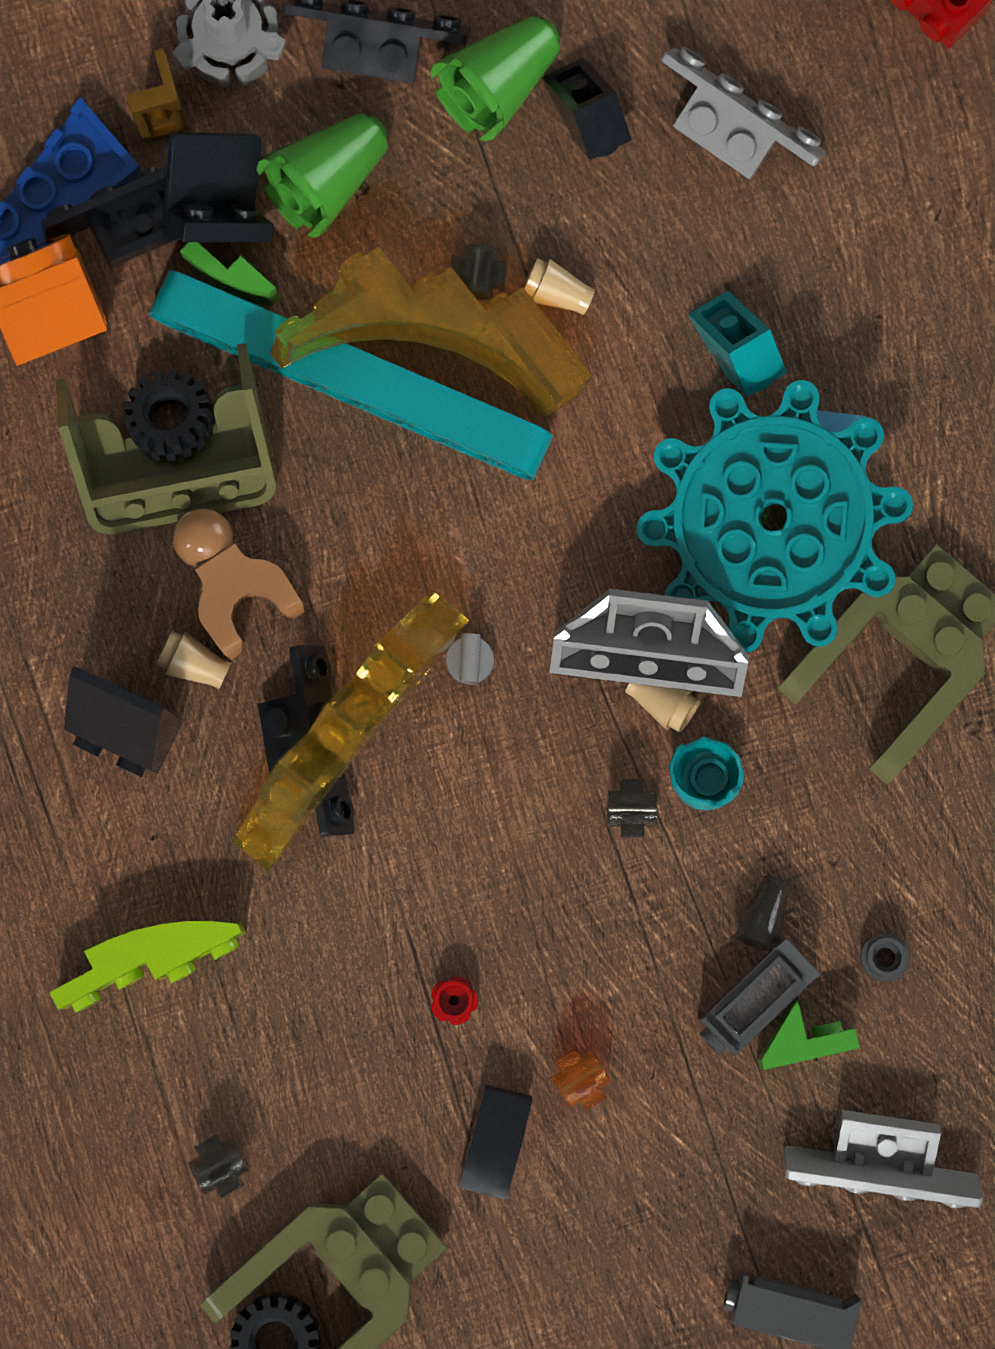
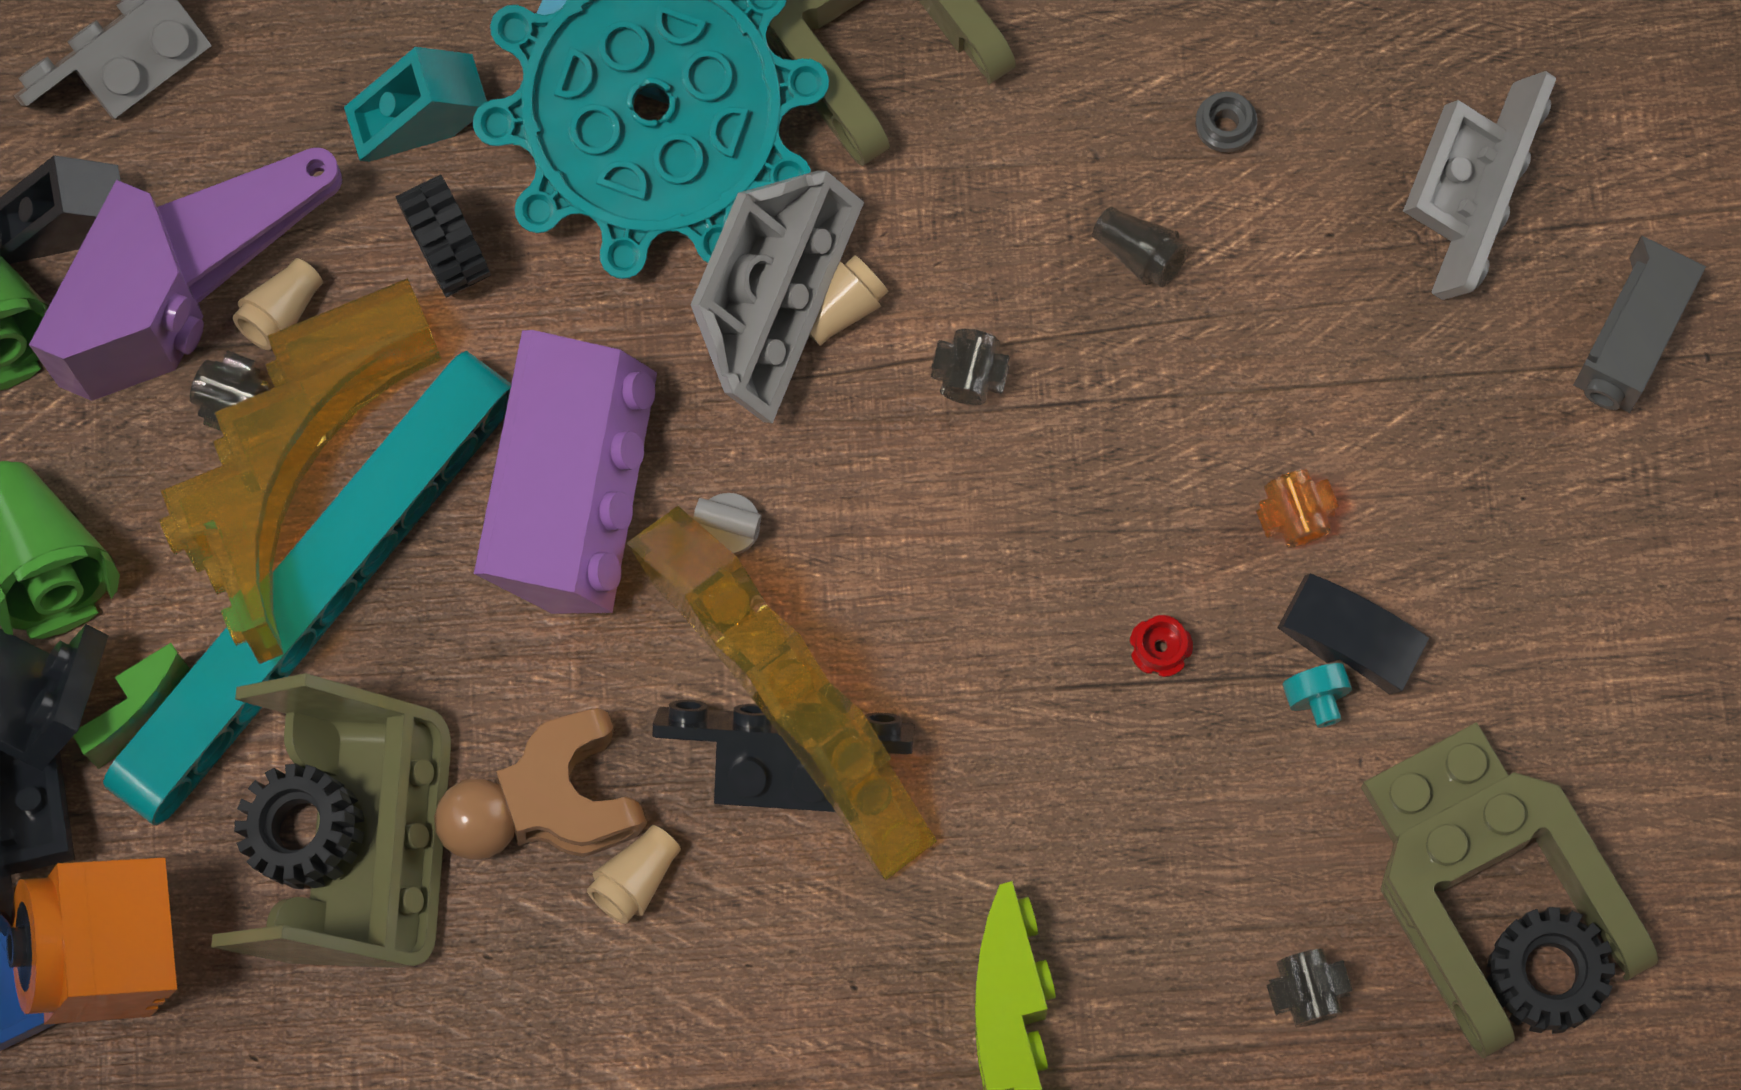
camera: 75 degrees left, 10 degrees down
(118, 722) = (694, 972): black slope -> none
(444, 1126) = (1318, 691): none -> teal tile
(469, 532) = (566, 474): none -> medium lavender slope
(550, 186) = (144, 269): none -> medium lavender slope
(633, 392) = (443, 235): none -> black tyre
(706, 773) = (949, 269): teal hair -> none
(757, 998) = (1242, 276): dark grey window -> none
(791, 1045) = (1307, 245): bright green slope -> none

